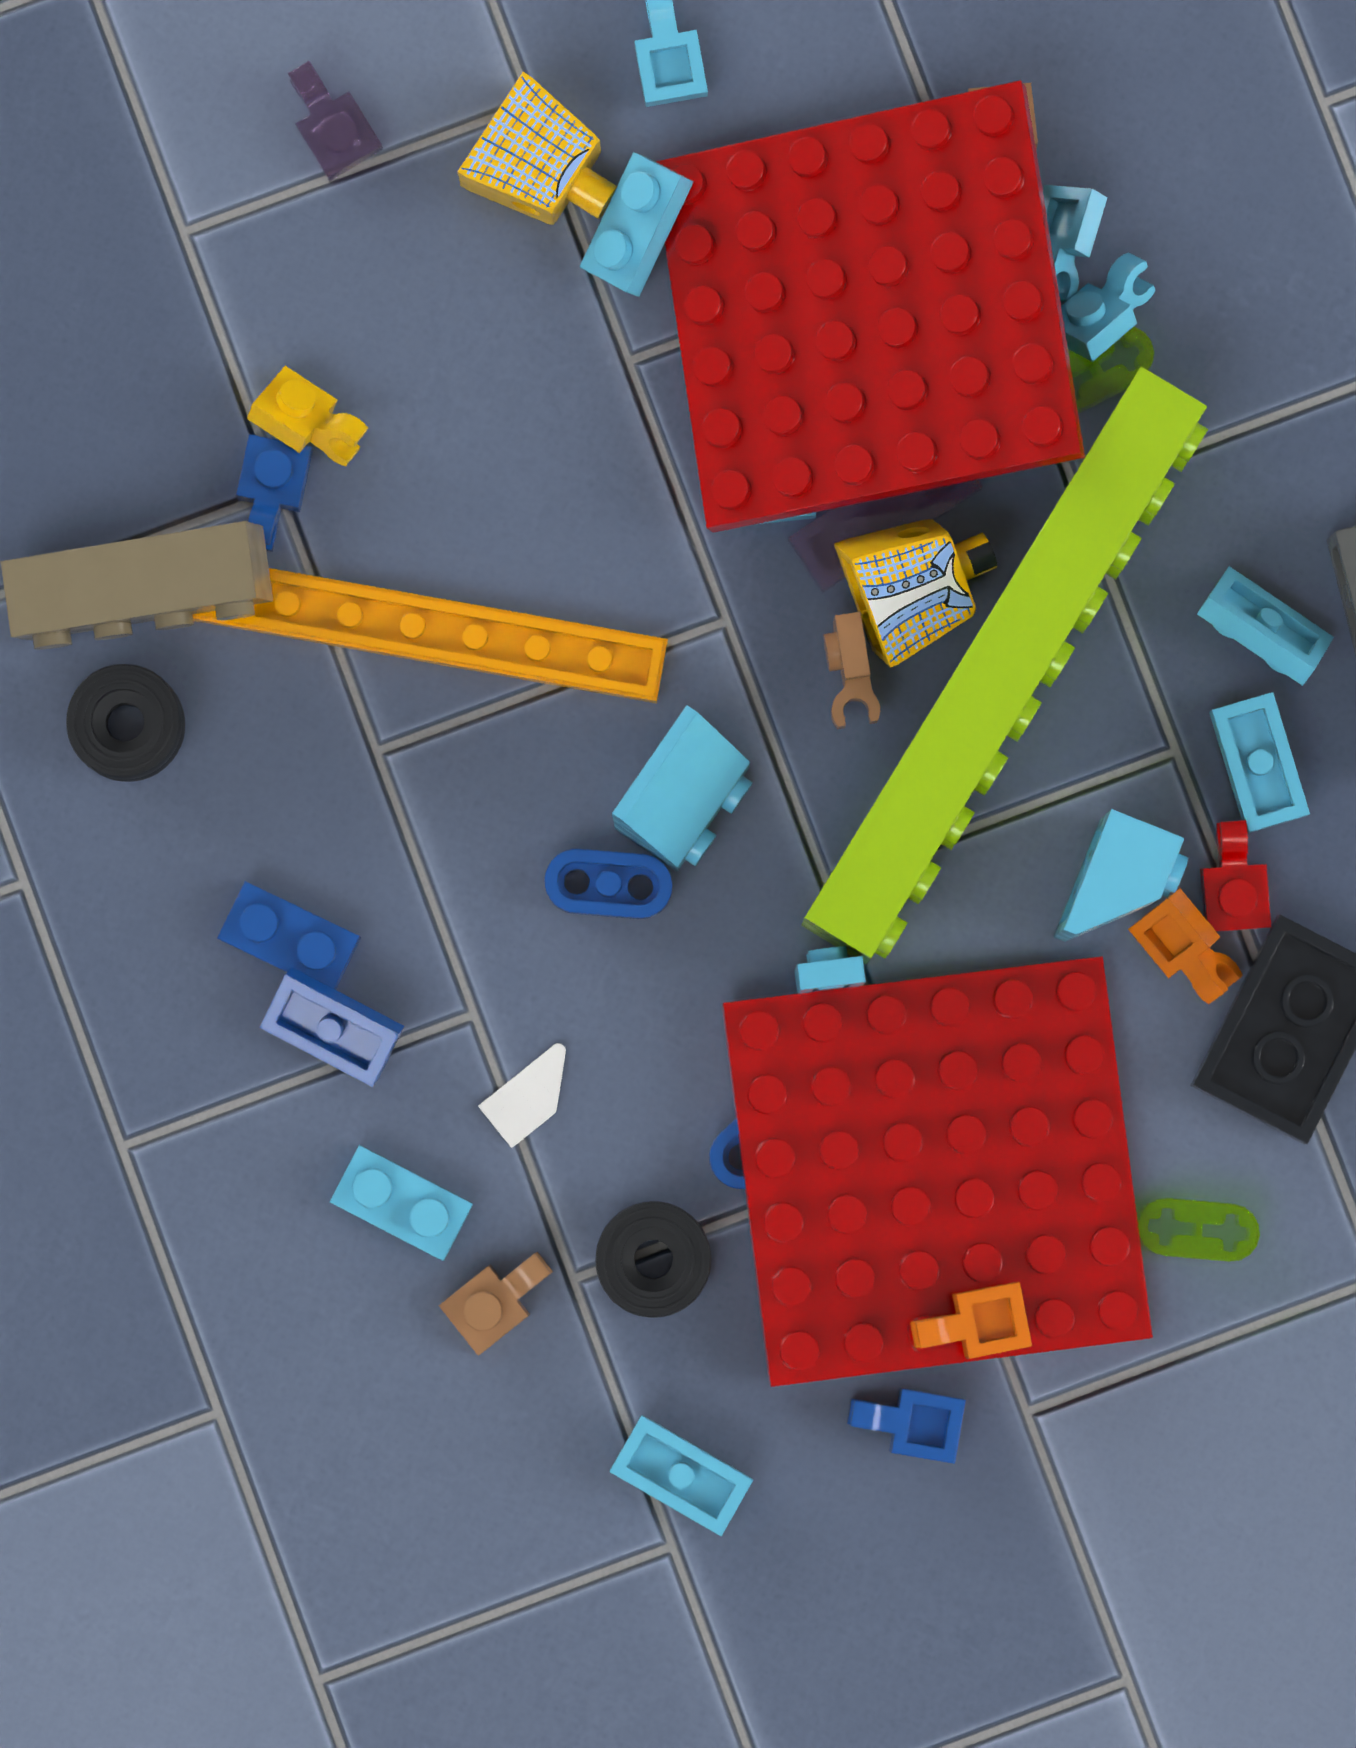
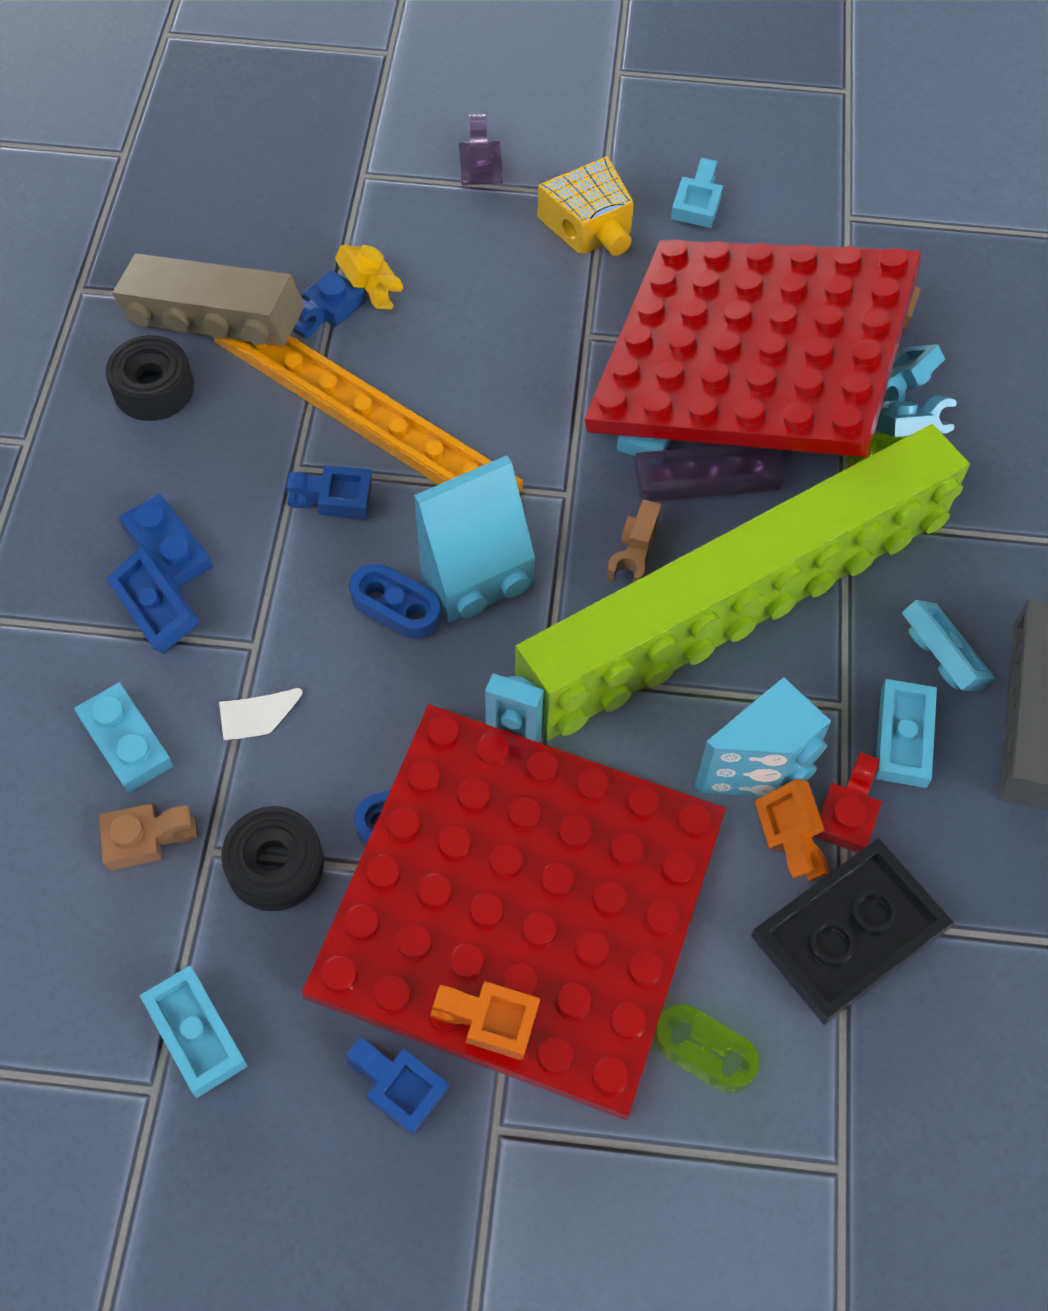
camera: 25 degrees right, 25 degrees down
(460, 769) = (337, 492): none -> blue plate
(636, 224) = (631, 258): medium azure plate -> none
(912, 584) = (702, 503): torso -> none

